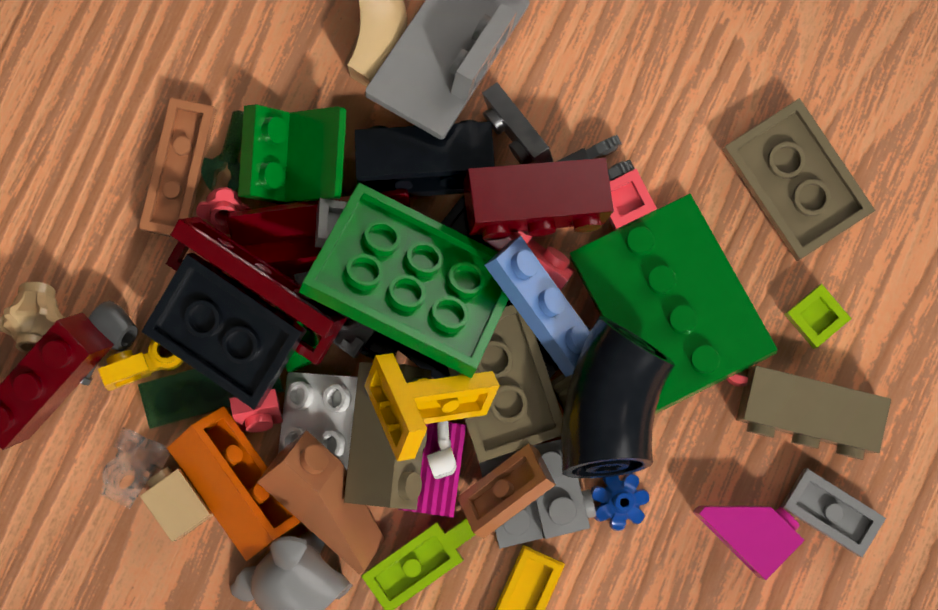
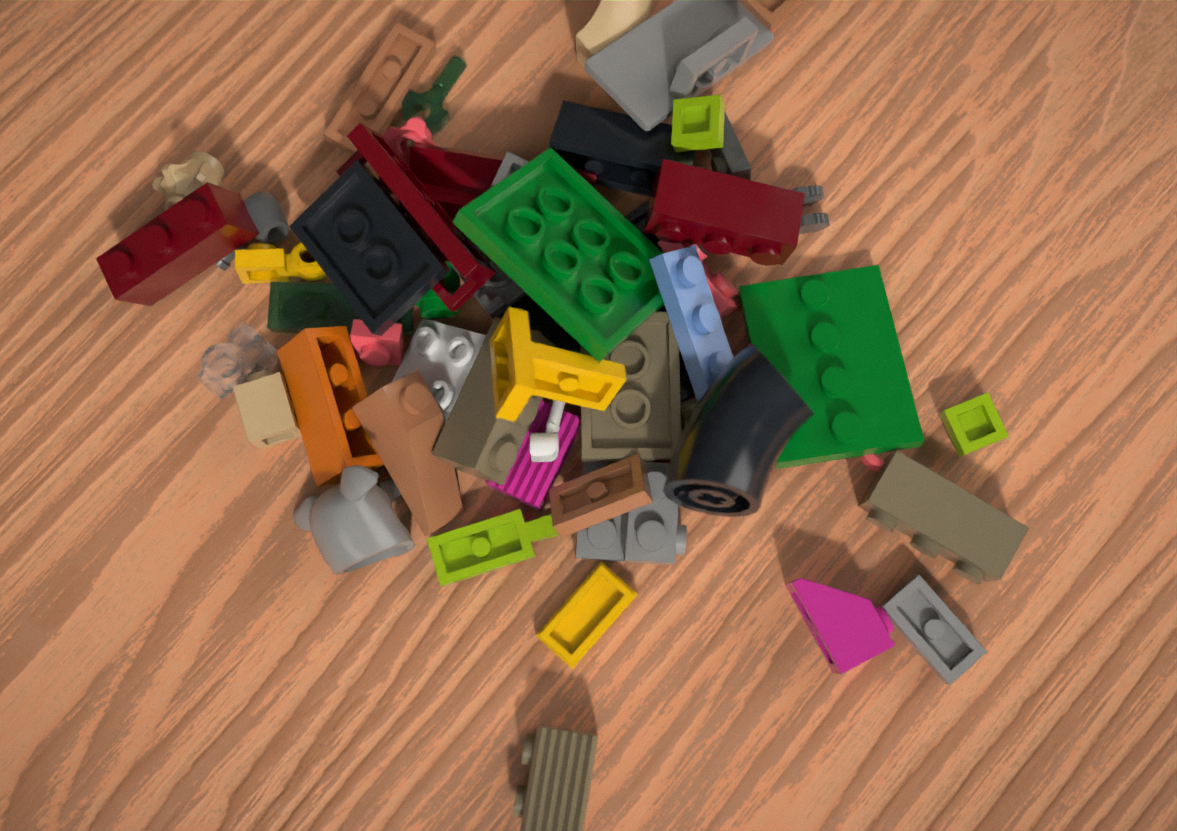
camera: 25 degrees right, 5 degrees down
(292, 154) = (493, 107): green bracket -> none
(488, 120) = (698, 123): none -> lime plate
(610, 501) = (704, 552): blue plant -> none
(629, 199) = (815, 251): coral plate -> none
(798, 179) = (993, 284): dark tan plate -> none

